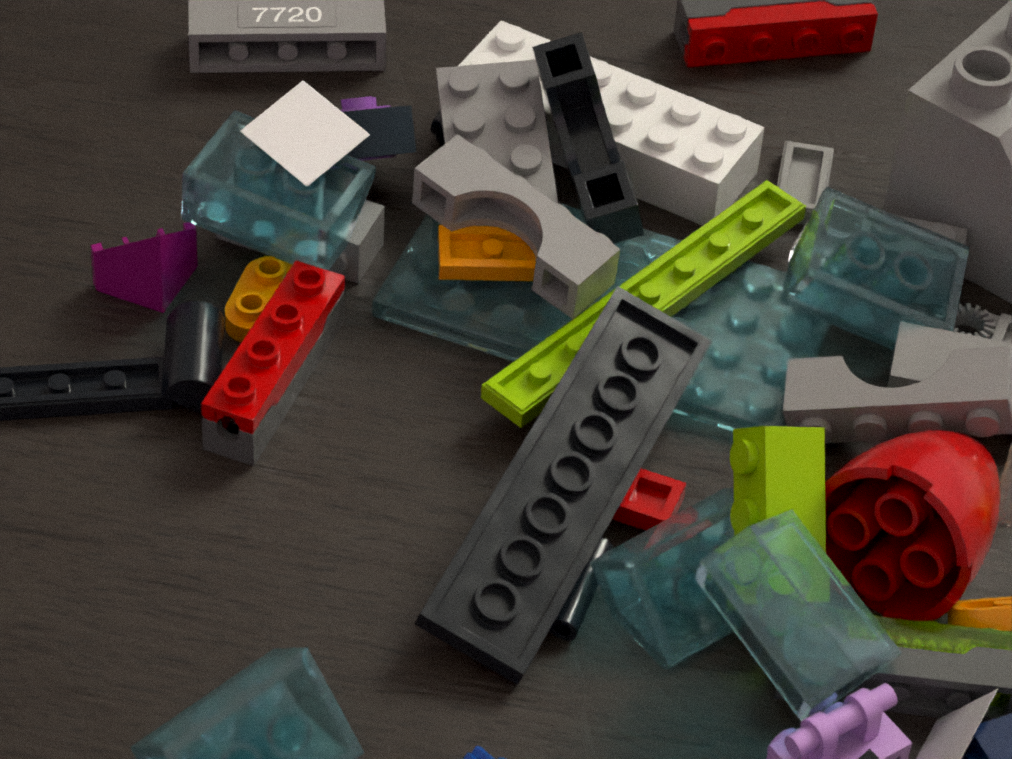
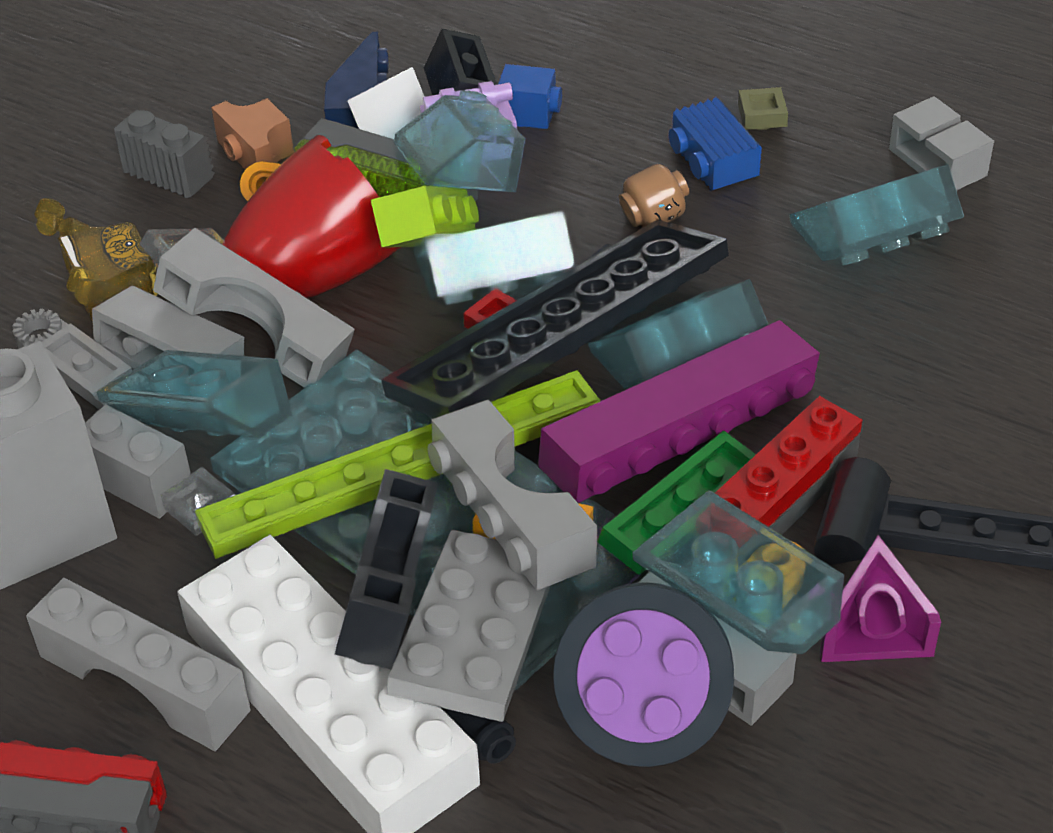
camera: 155 degrees left, 0 degrees up
(305, 133) = (701, 581): white sticker -> none
(360, 321) = (672, 495): none -> green plate
(392, 409) = (676, 411): none -> magenta brick
(422, 511) = (680, 333): none -> clear light blue slope
(542, 703) = (653, 195): none -> medium nougat head
(805, 173) = (154, 589): light grey tile -> none
(816, 108) = (185, 683): none -> light grey arch

